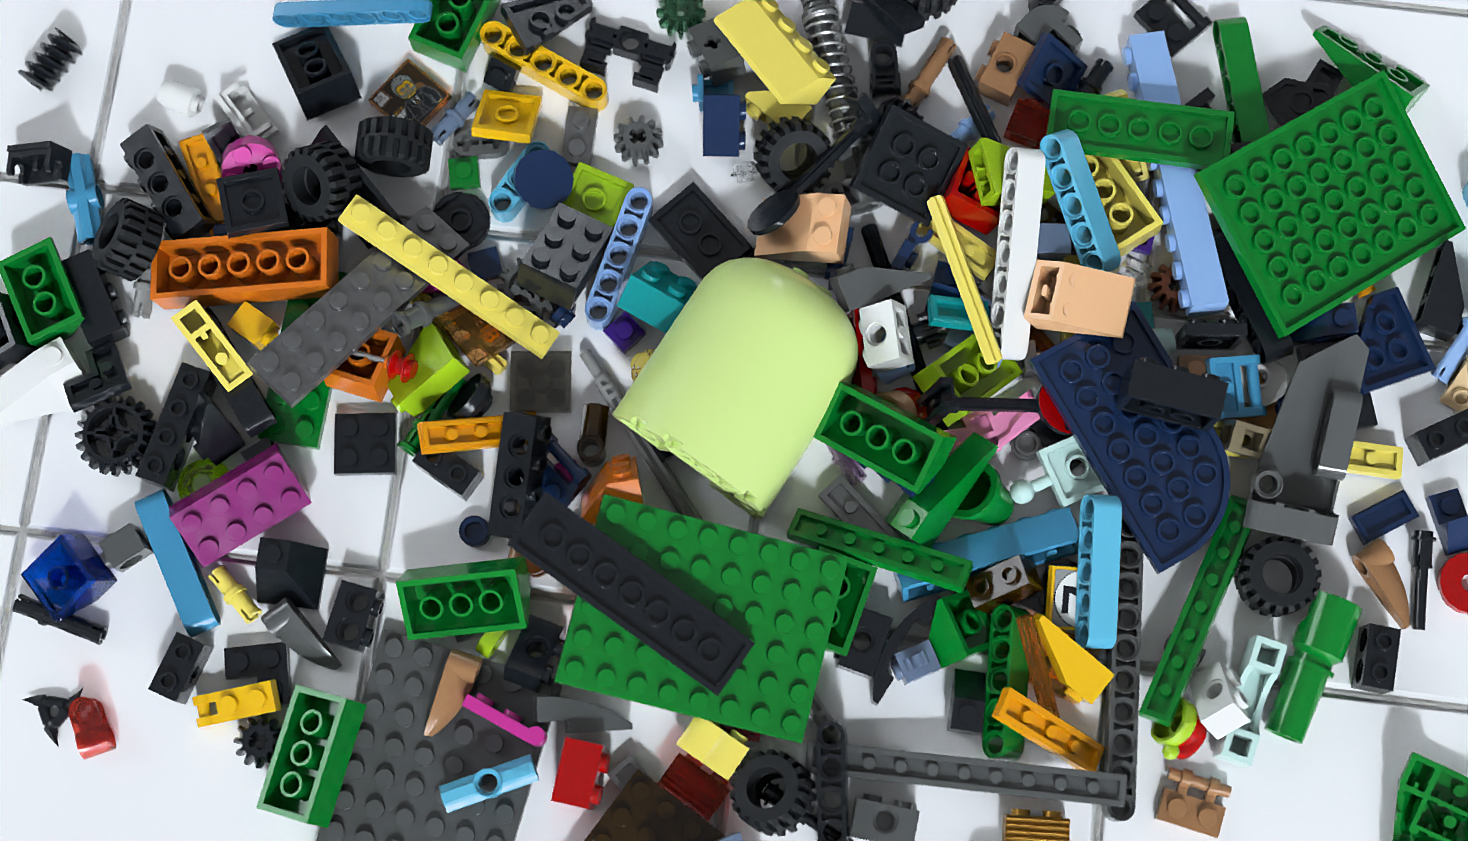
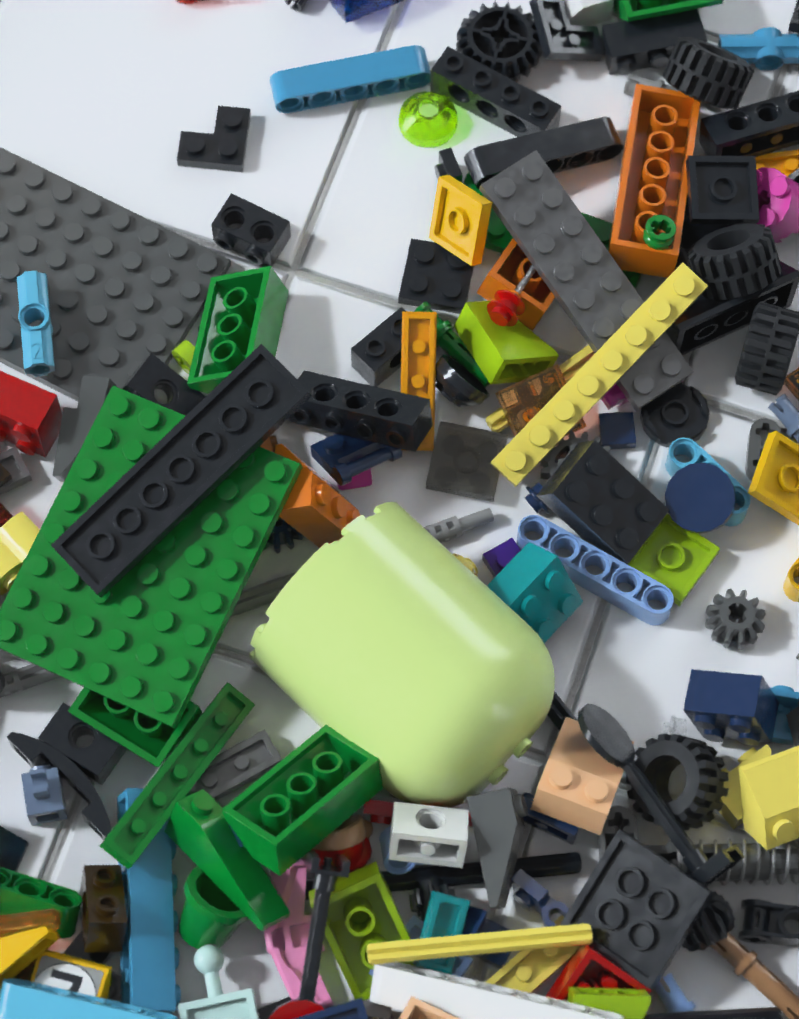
camera: 100 degrees right, 10 degrees down
(124, 548) = (377, 30): dark grey brick -> none
(180, 668) = (238, 64): black brick -> none
(212, 345) = (574, 128): light yellow slope -> none
(214, 432) = (479, 126): black slope -> none
(235, 594) = (304, 126): light yellow pin -> none
(238, 703) = (189, 110): yellow plate -> none
(239, 505) = (393, 138): magenta brick -> none
(253, 326) = (592, 185): yellow brick -> none
(263, 728) = (144, 126): black gear -> none
(290, 571) = (314, 180): black slope -> none
(295, 631) = (252, 176): dark grey piece -> none
(306, 235) = (662, 240): none -> green bush
(311, 756) = (112, 164): green brick -> none
(318, 425) = (460, 220): none -> yellow plate
(421, 314) = (565, 343): dark grey pin -> none
(455, 684) = (151, 310): medium nougat piece -> none
(464, 173) = (731, 428): green plate -> none
(474, 531) = (315, 361): dark blue tile -> none
(507, 720) = (96, 349): dark pink plate -> none
(579, 135) = (754, 559): flat silver plate -> none
(593, 432) = (412, 503): dark brown piece -> none
(698, 231) = (608, 664): black plate -> none
(958, 629) = (63, 846): green slope -> none
(1026, 445) = (267, 986): flat silver plate -> none

